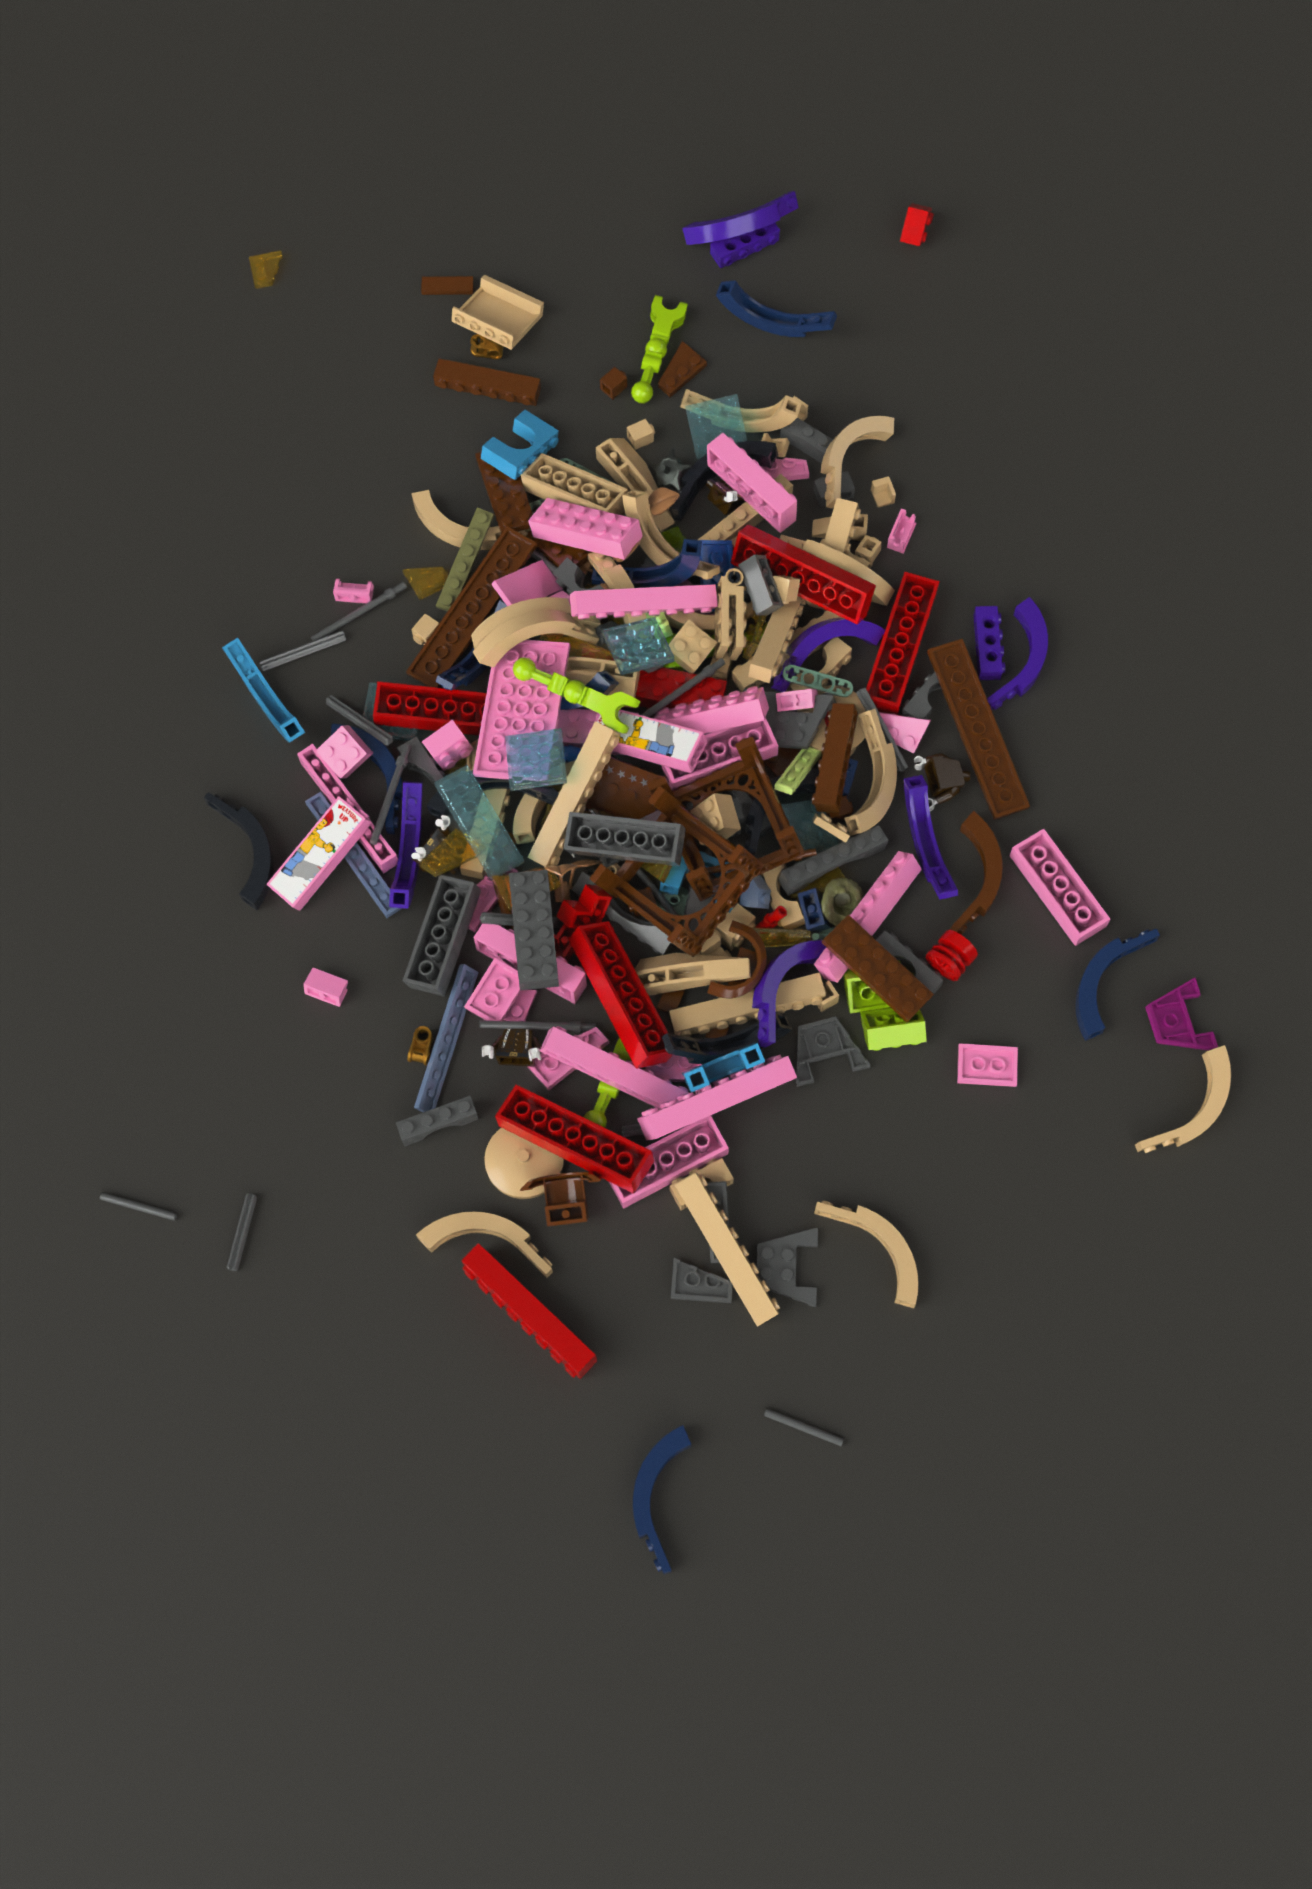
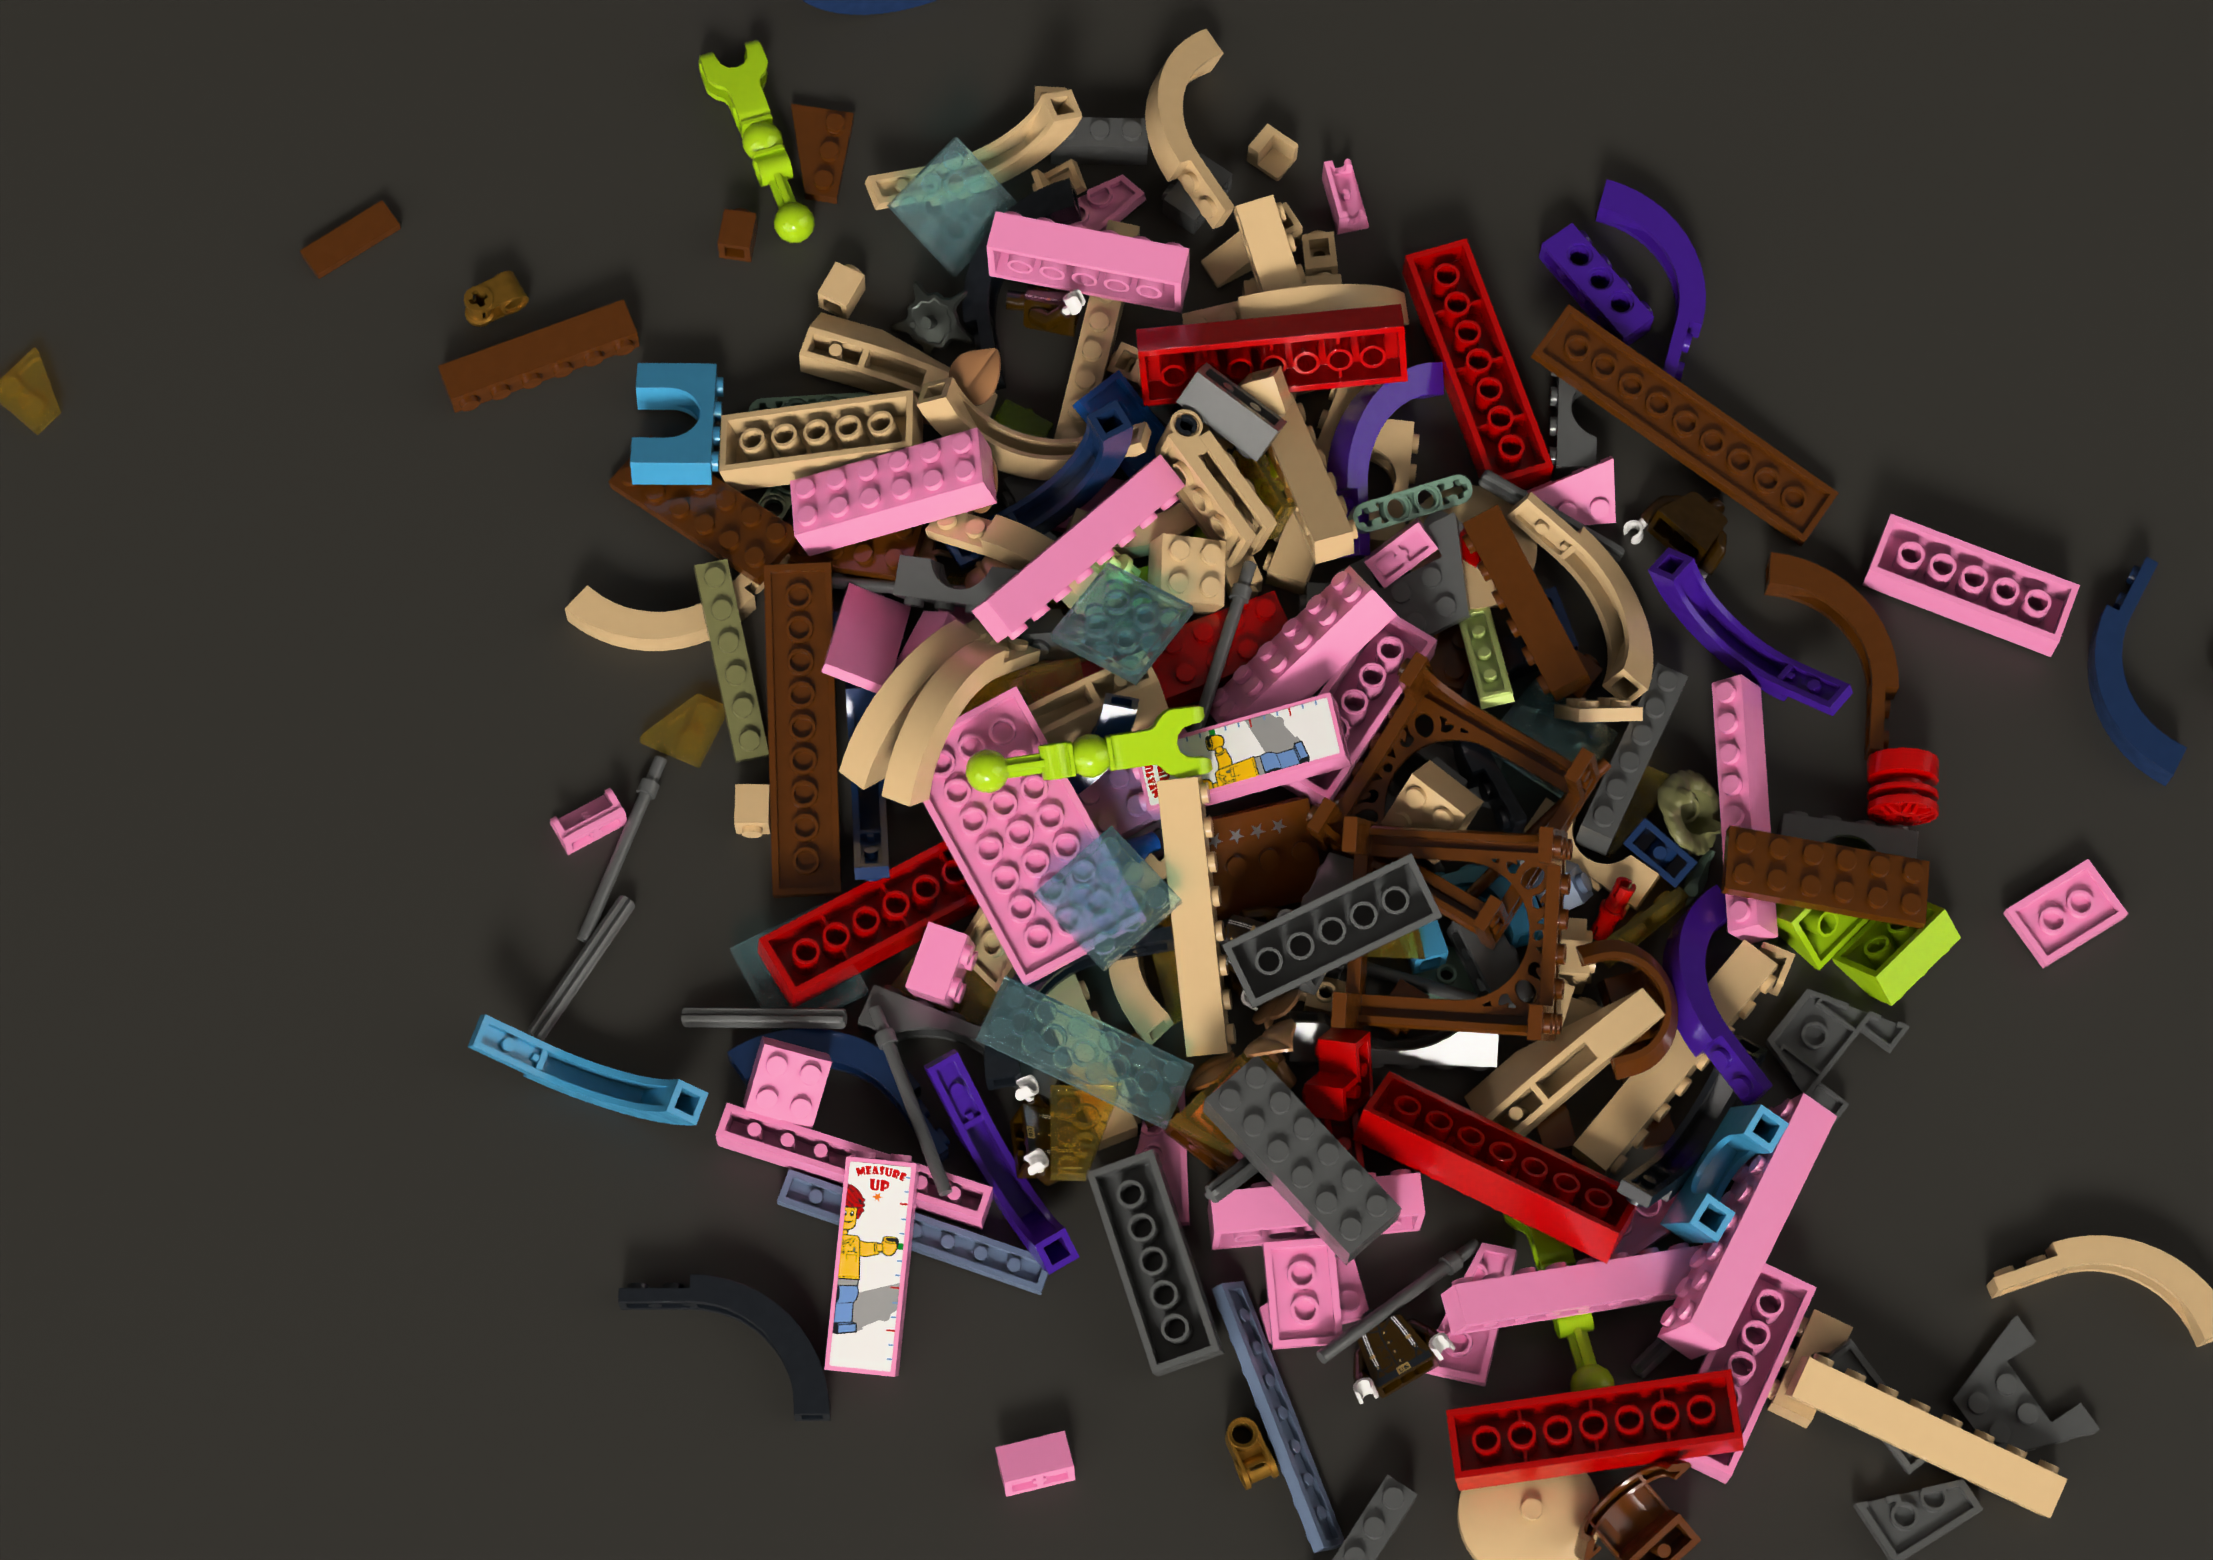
camera: 40 degrees left, 0 degrees up
(499, 312) = (473, 234): tan panel -> none

